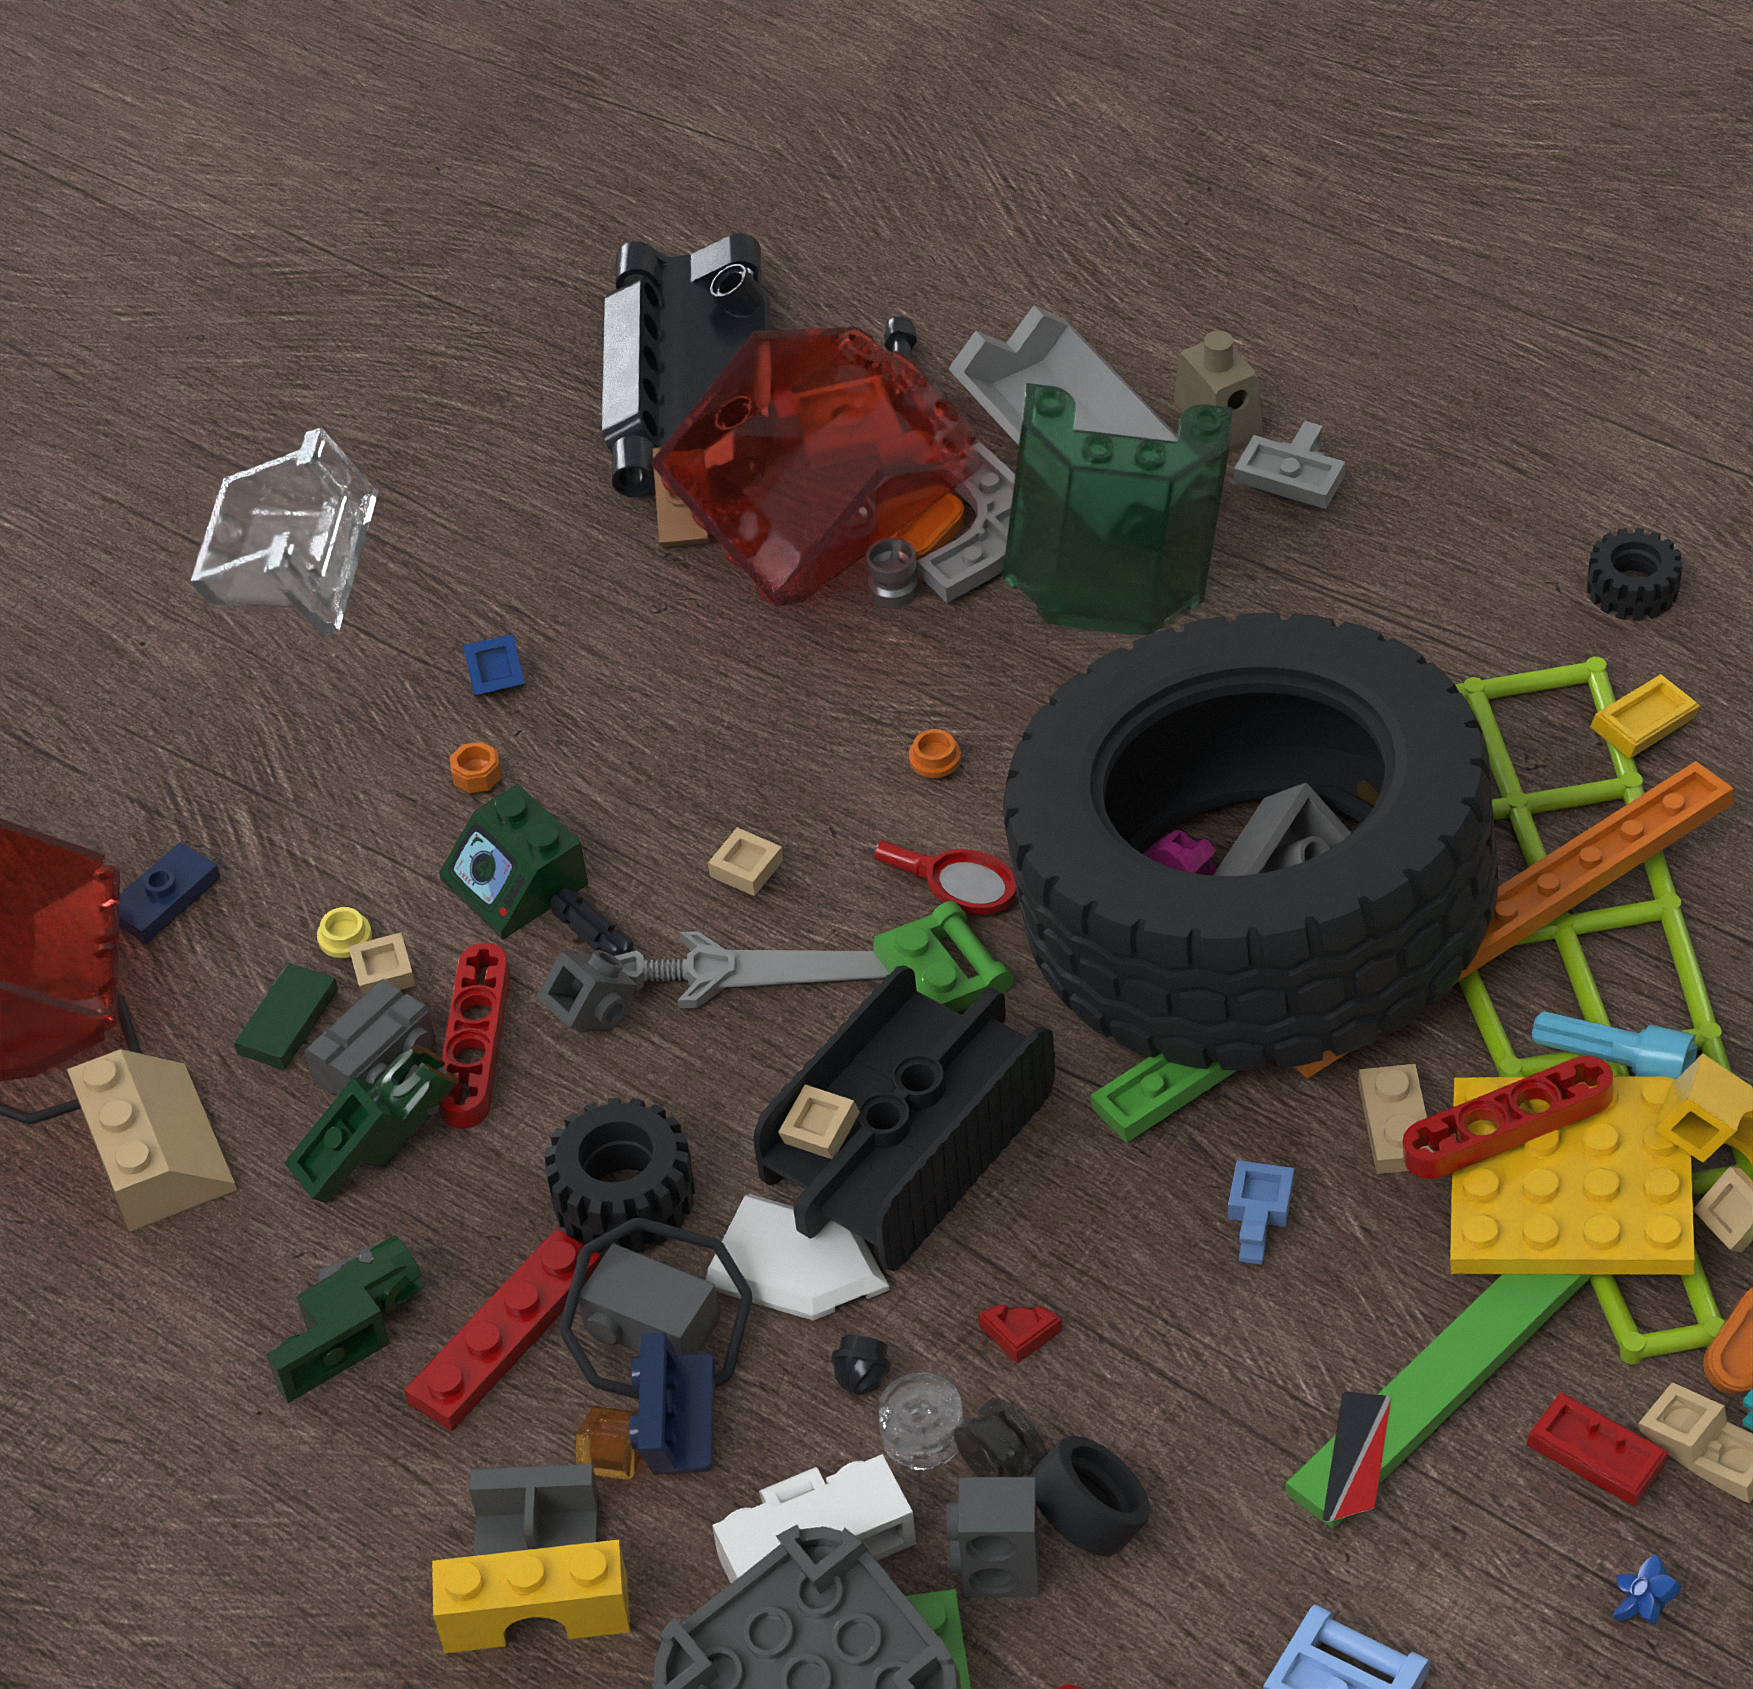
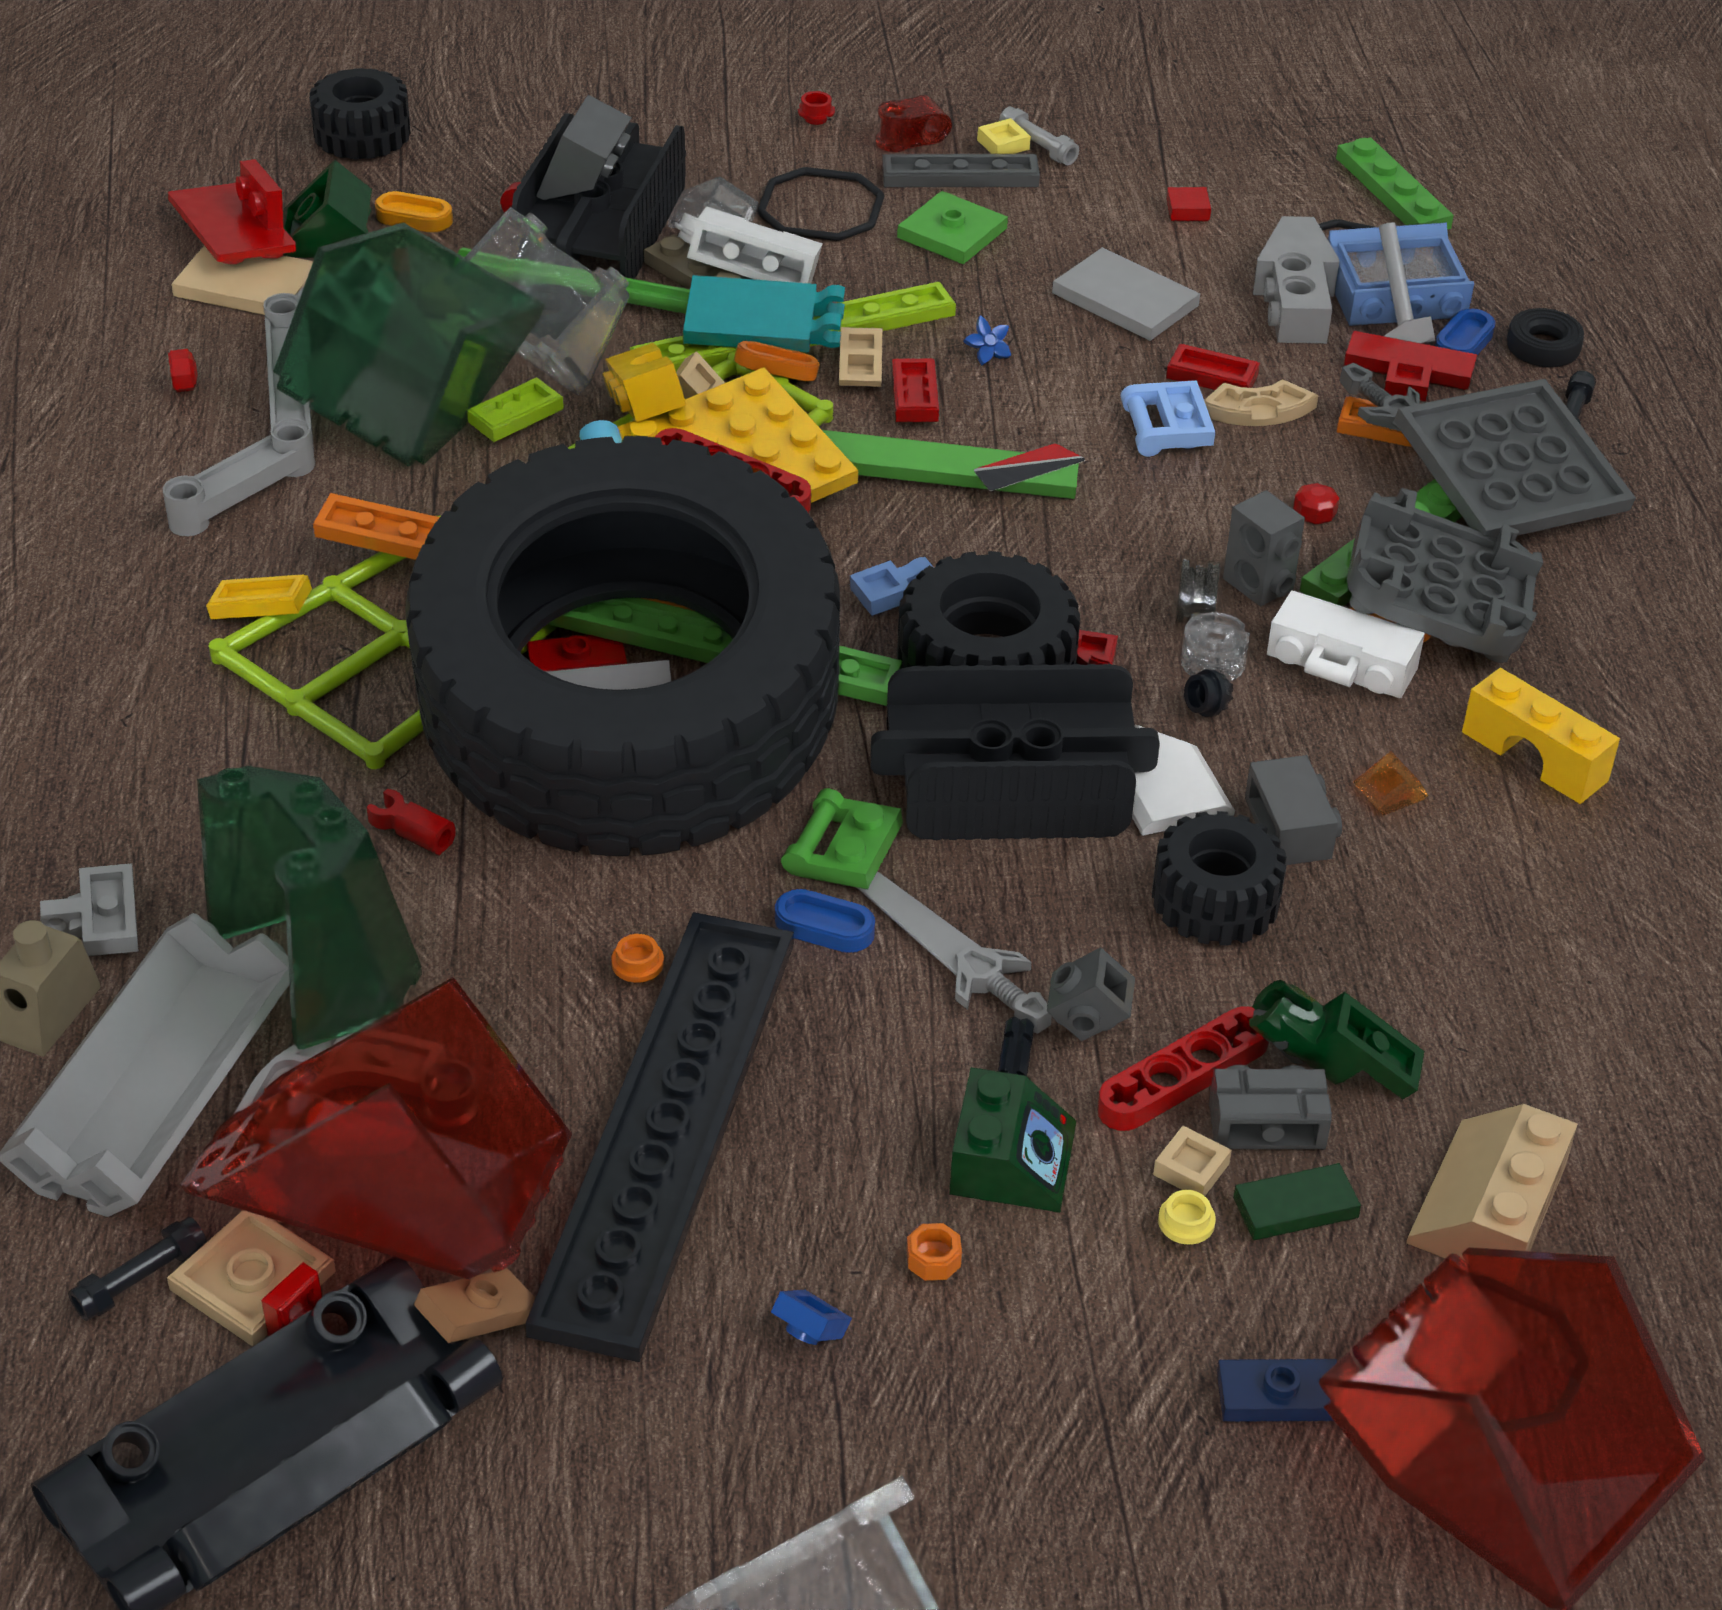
camera: 135 degrees left, 5 degrees down
(345, 1316) = (1486, 959): dark green plate -> none
(498, 1333) = (1385, 888): red plate -> none
(534, 1507) = (1483, 781): dark grey panel -> none
(671, 1232) = (1366, 816): black piece -> none
(674, 1407) = (1354, 741): dark blue bracket -> none
(745, 861) = (861, 1002): tan plate -> none
(752, 689) = (661, 1140): none -> black plate
(819, 1122) = (1084, 745): tan plate -> none
(866, 902) = (825, 920): none -> blue tile
(966, 876) = (752, 870): red piece -> none
(1087, 1266) = (992, 597): none -> black tyre
(1090, 1496) = (1189, 531): black tyre -> none
(1634, 594) = (78, 679): black tyre -> none

